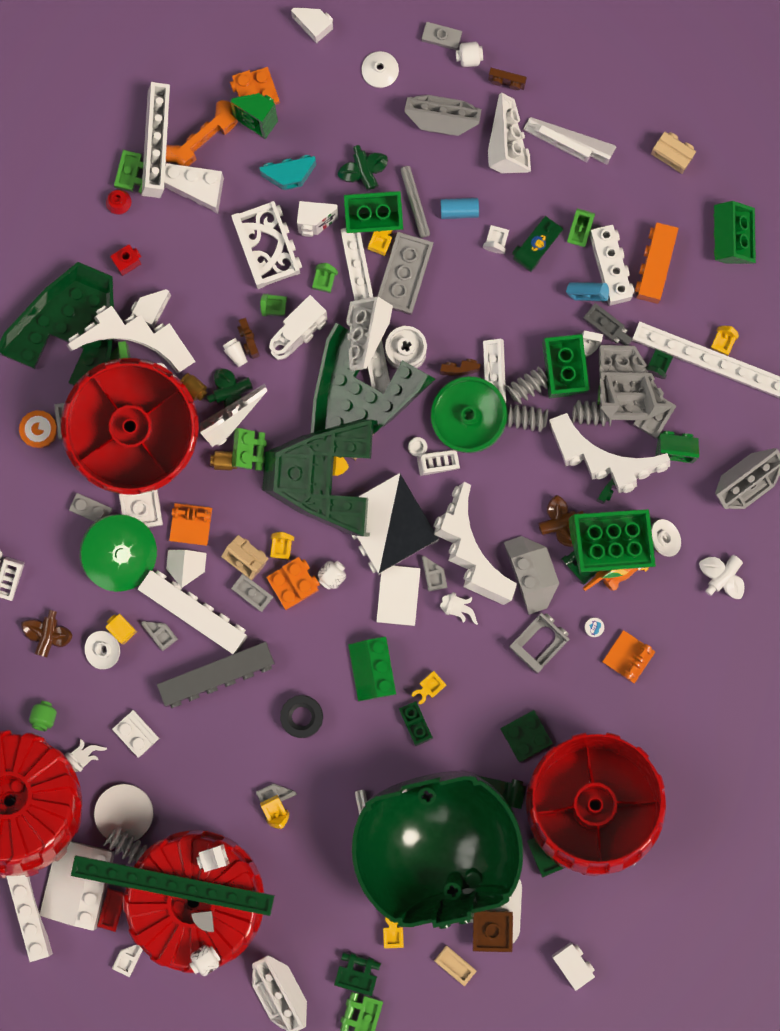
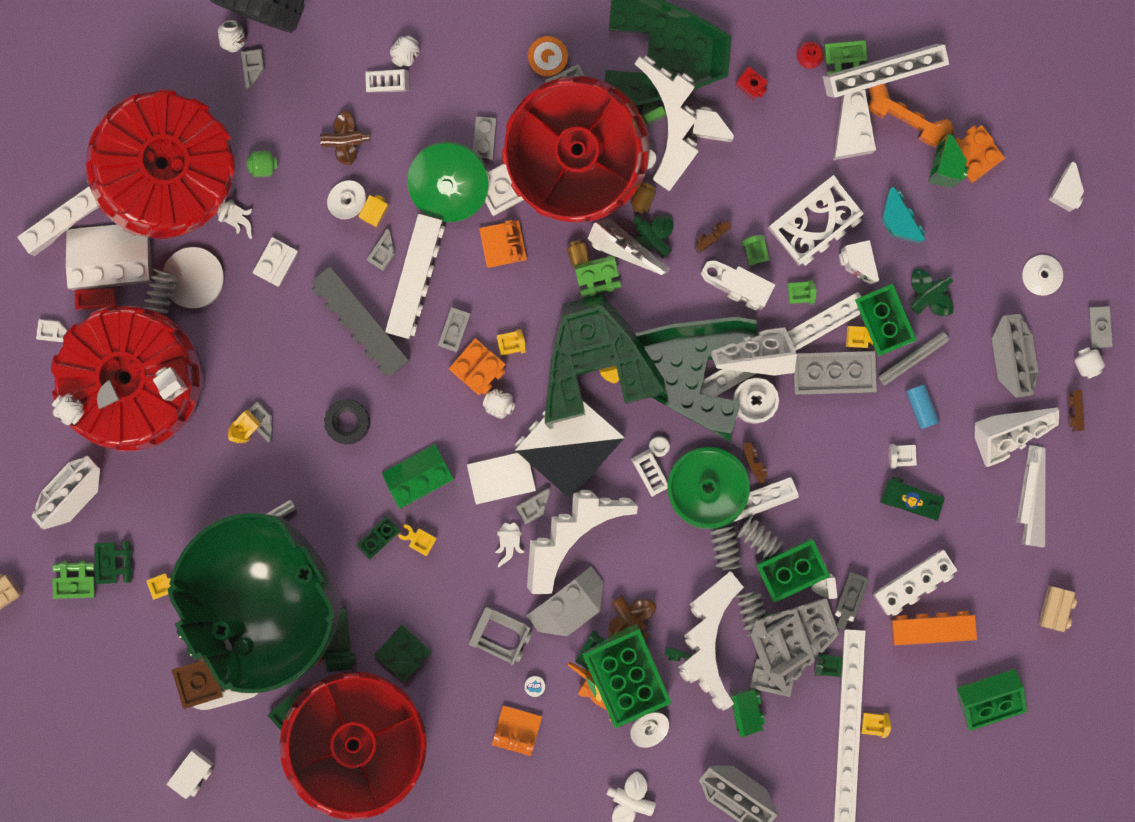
camera: 75 degrees right, 5 degrees up
(172, 885) = (130, 352): dark green plate -> none
(185, 565) = (458, 253): white slope -> none
(235, 352) = (693, 228): white cone -> none
(245, 557) = (487, 310): tan brick -> none
(455, 965) = (153, 656): tan tile -> none
(580, 227) = (943, 538): bright green slope -> none
(588, 291) = (878, 568): dark azure brick -> none

